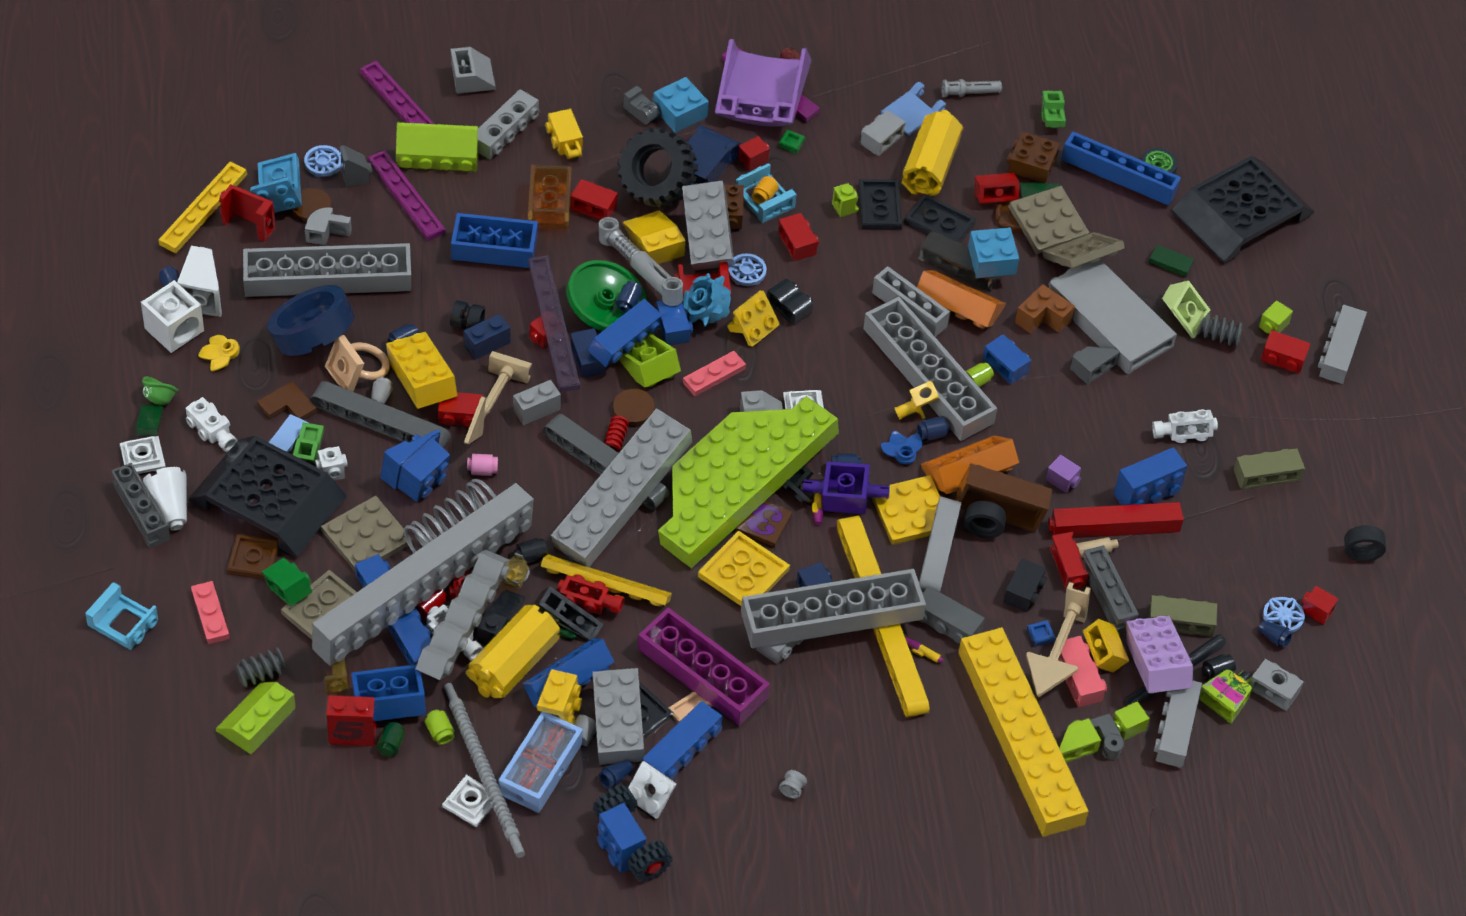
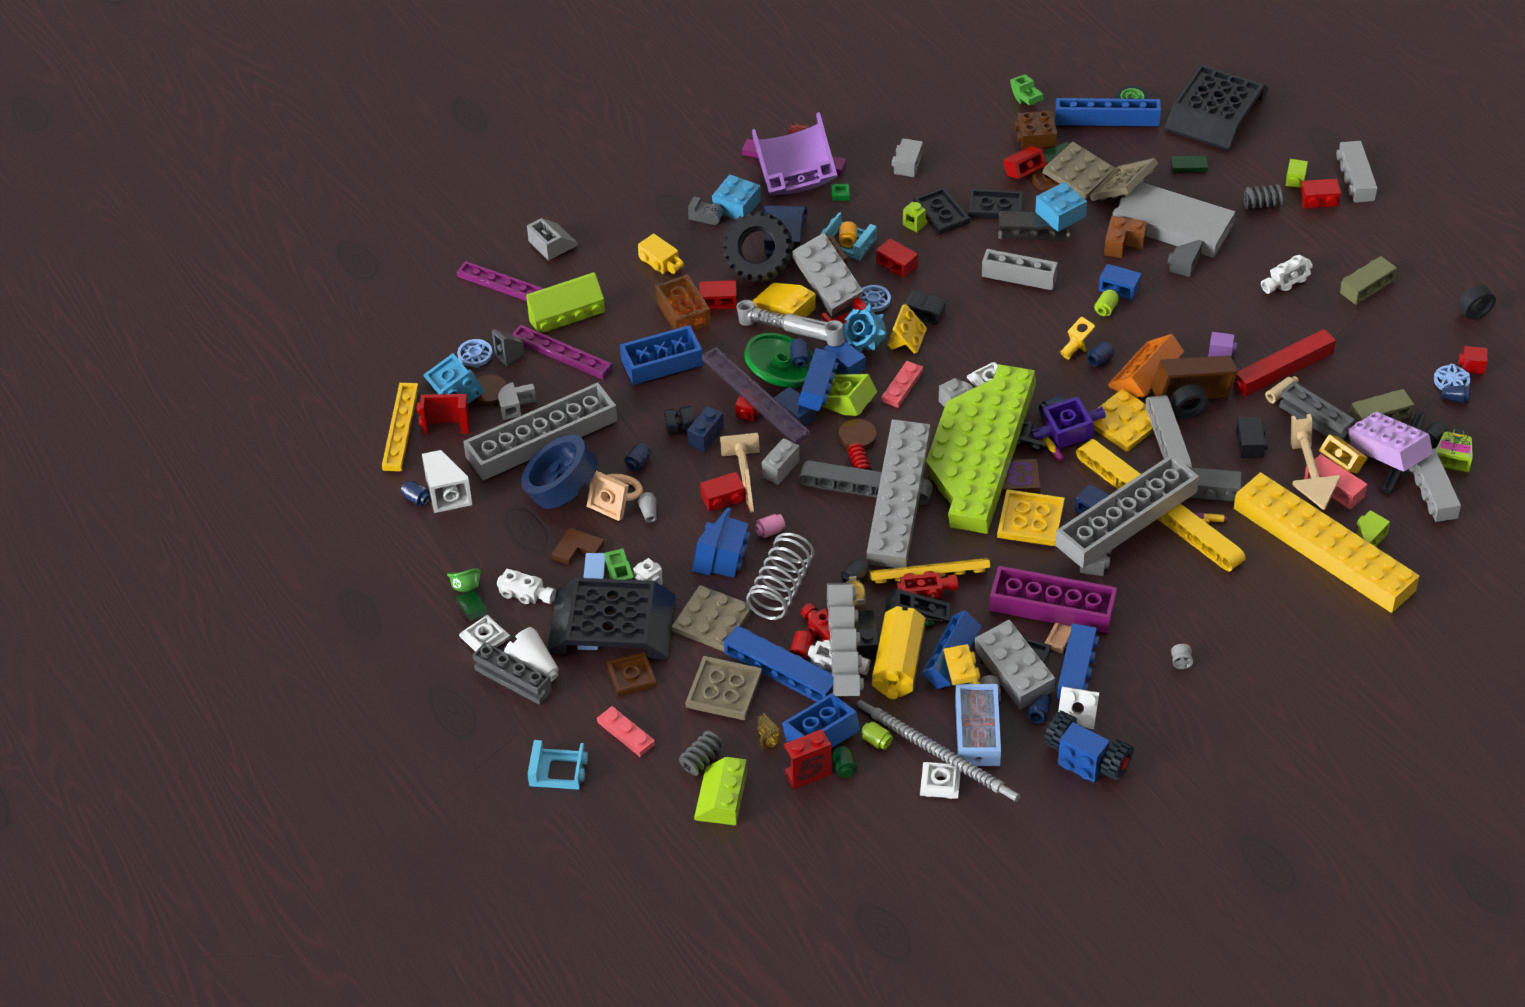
camera: 20 degrees left, 5 degrees down
(172, 316) = (439, 516): white brick -> none
(219, 351) = (491, 531): yellow plate -> none
(287, 581) = (677, 678): green brick -> none
(373, 414) = (654, 525): dark grey beam -> none
(421, 369) = (674, 473): yellow brick -> none
(421, 575) = (790, 623): light grey piece -> none
(506, 123) = (607, 263): light grey brick -> none
(753, 153) = (819, 211): red brick -> none
(900, 446) = (1086, 379): blue plate -> none
(912, 109) = (918, 132): medium blue flag -> none
(923, 360) = (1062, 308): light grey brick -> none
(932, 153) = (959, 156): yellow brick -> none
(961, 87) = (945, 102): light grey pin -> none
(961, 298) = (1061, 252): orange slope -> none
(1041, 633) = (1285, 467): blue tile -> none
(1068, 560) = (1270, 406): red window -> none
(1110, 736) = (1398, 521): dark grey leg -> none
(1131, 720) = (1398, 500): lime brick -> none
(1151, 479) = (1292, 321): blue brick -> none
(1186, 306) = (1224, 190): yellowish green slope -> none
(1280, 694) = (1485, 429): light grey brick -> none

